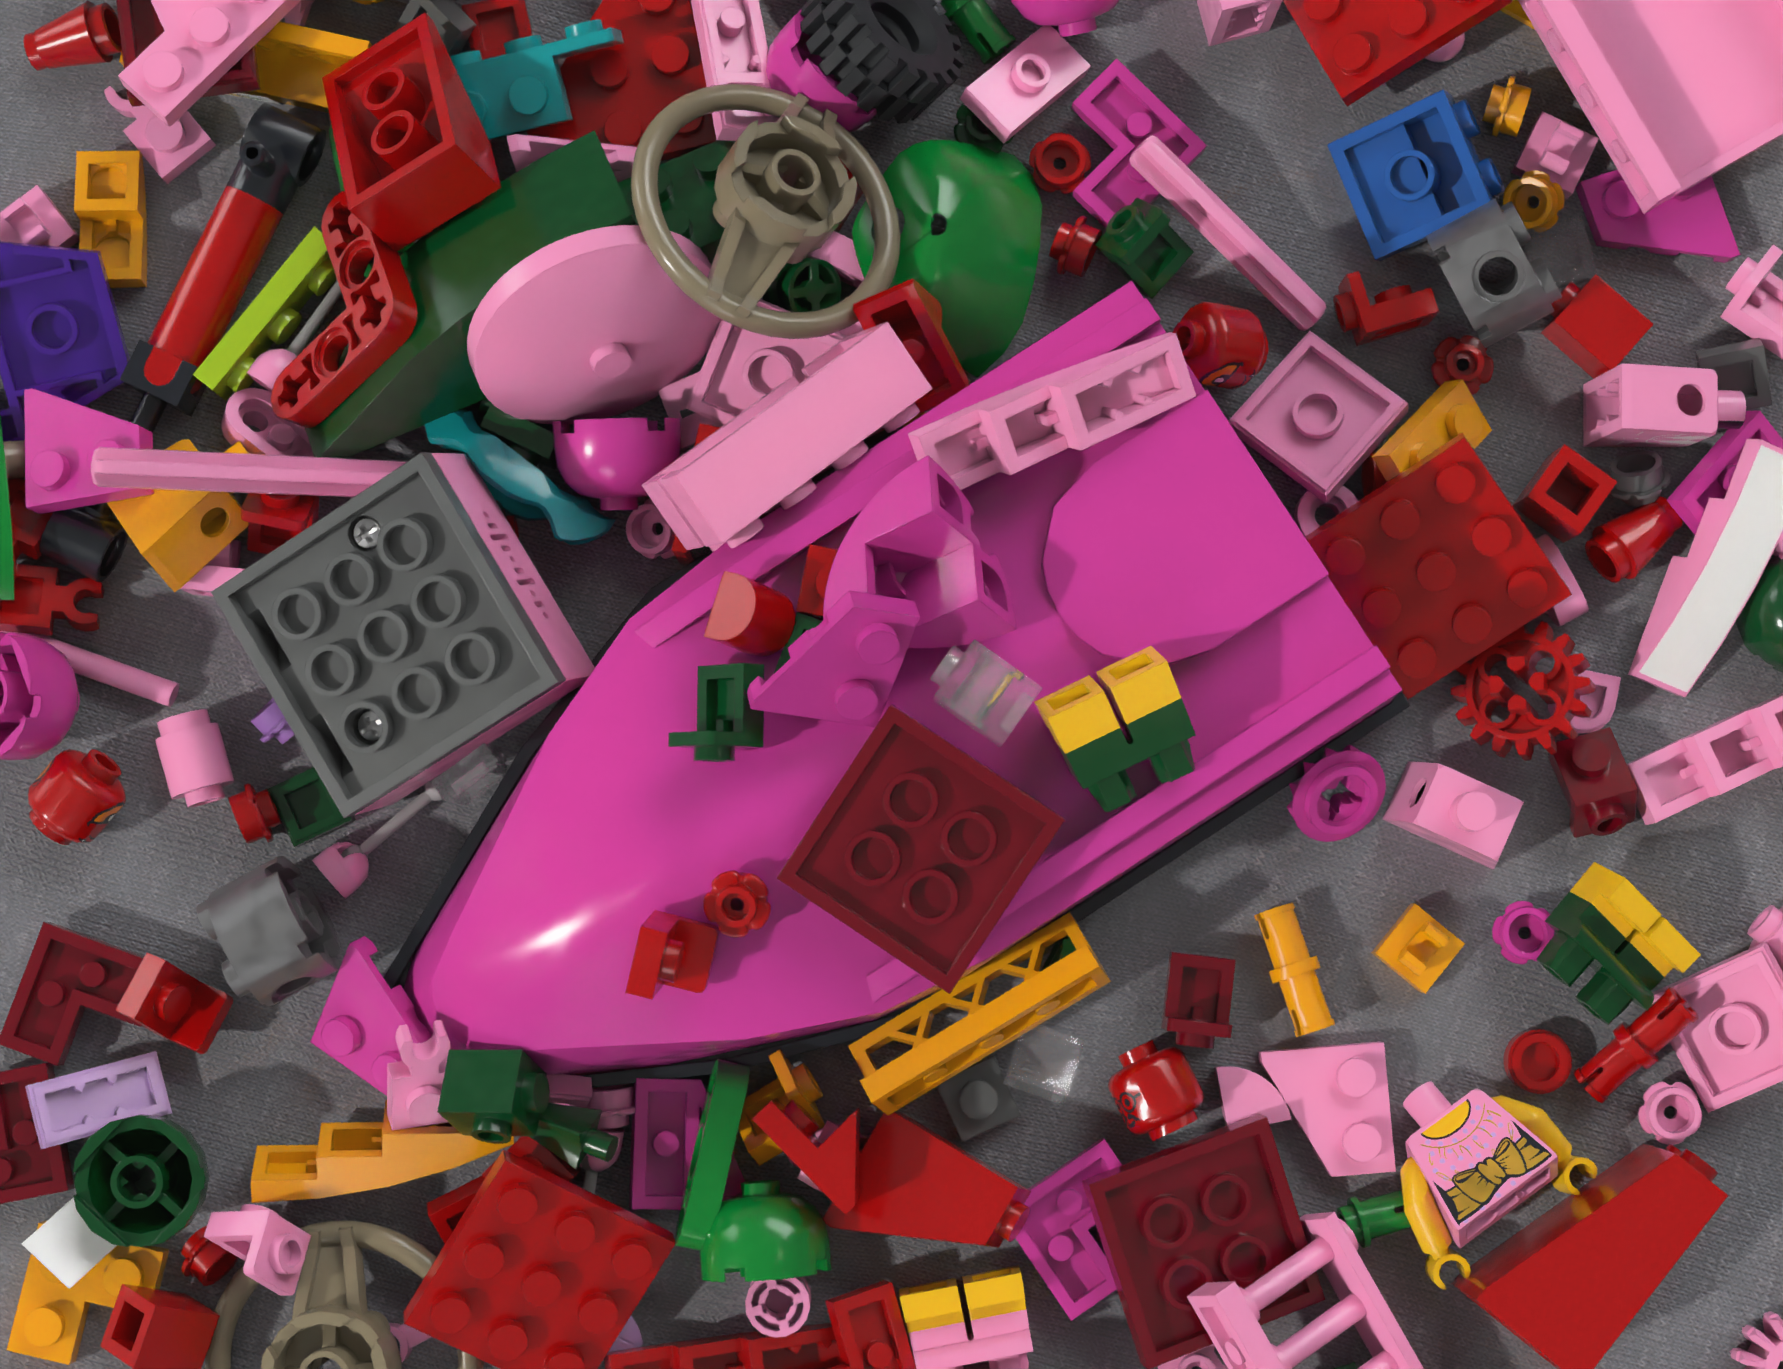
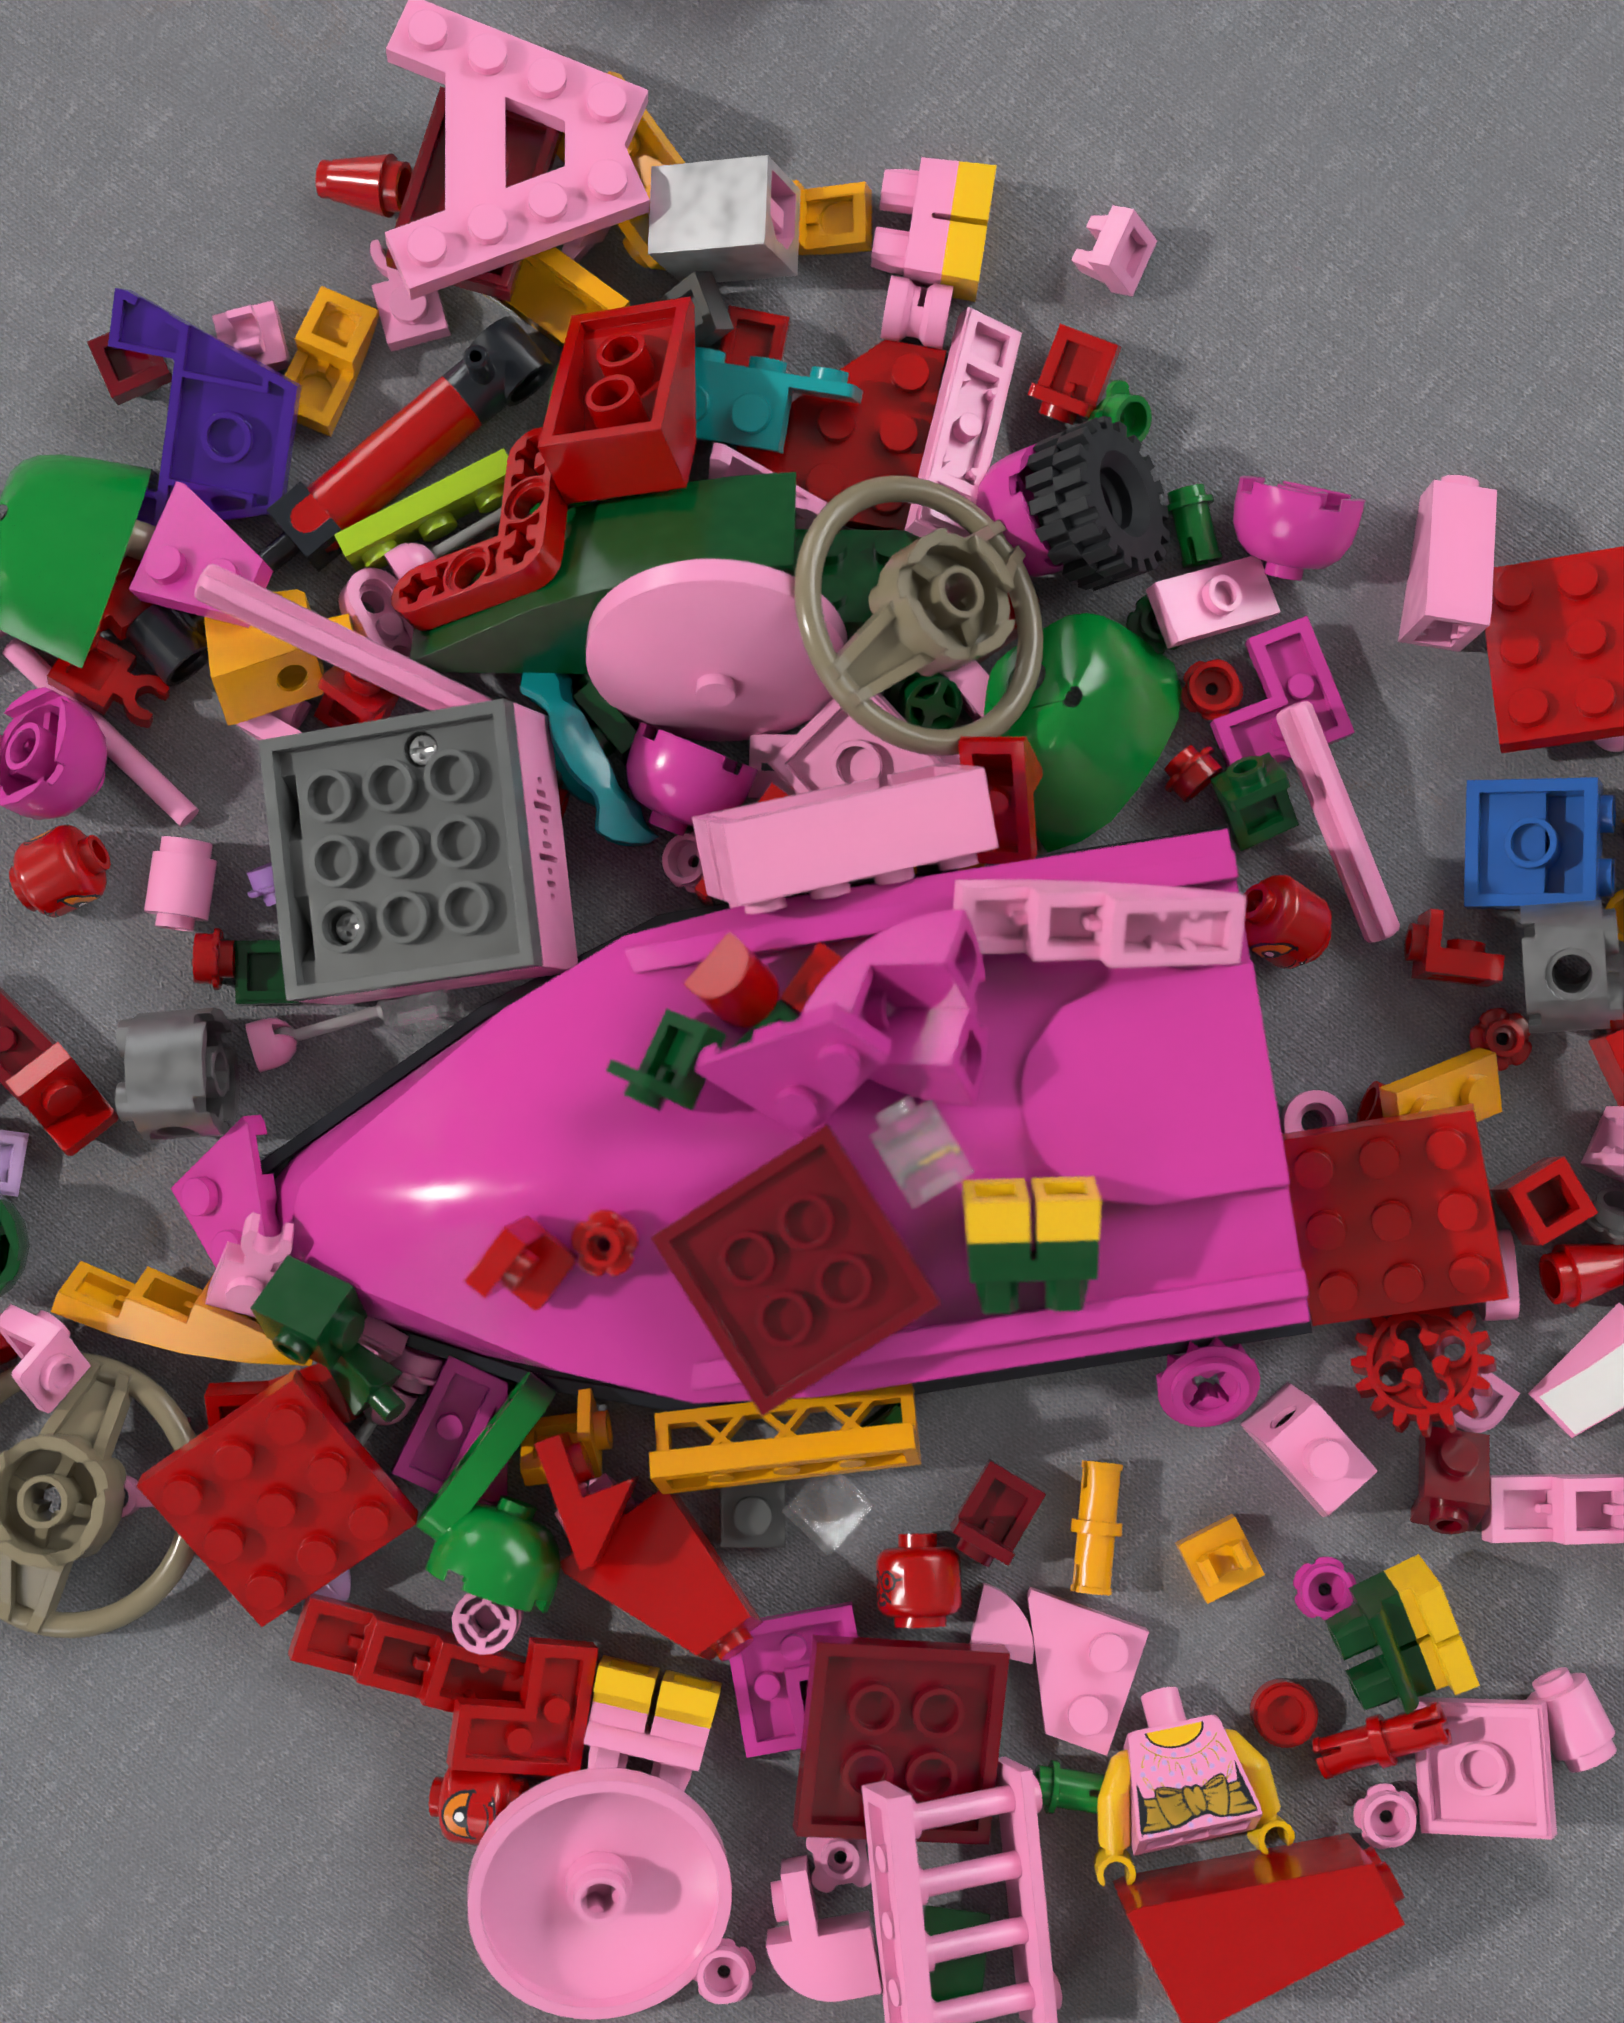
camera: 30 degrees right, 0 degrees up
(1318, 416) = (1346, 1028): bright pink tile -> none

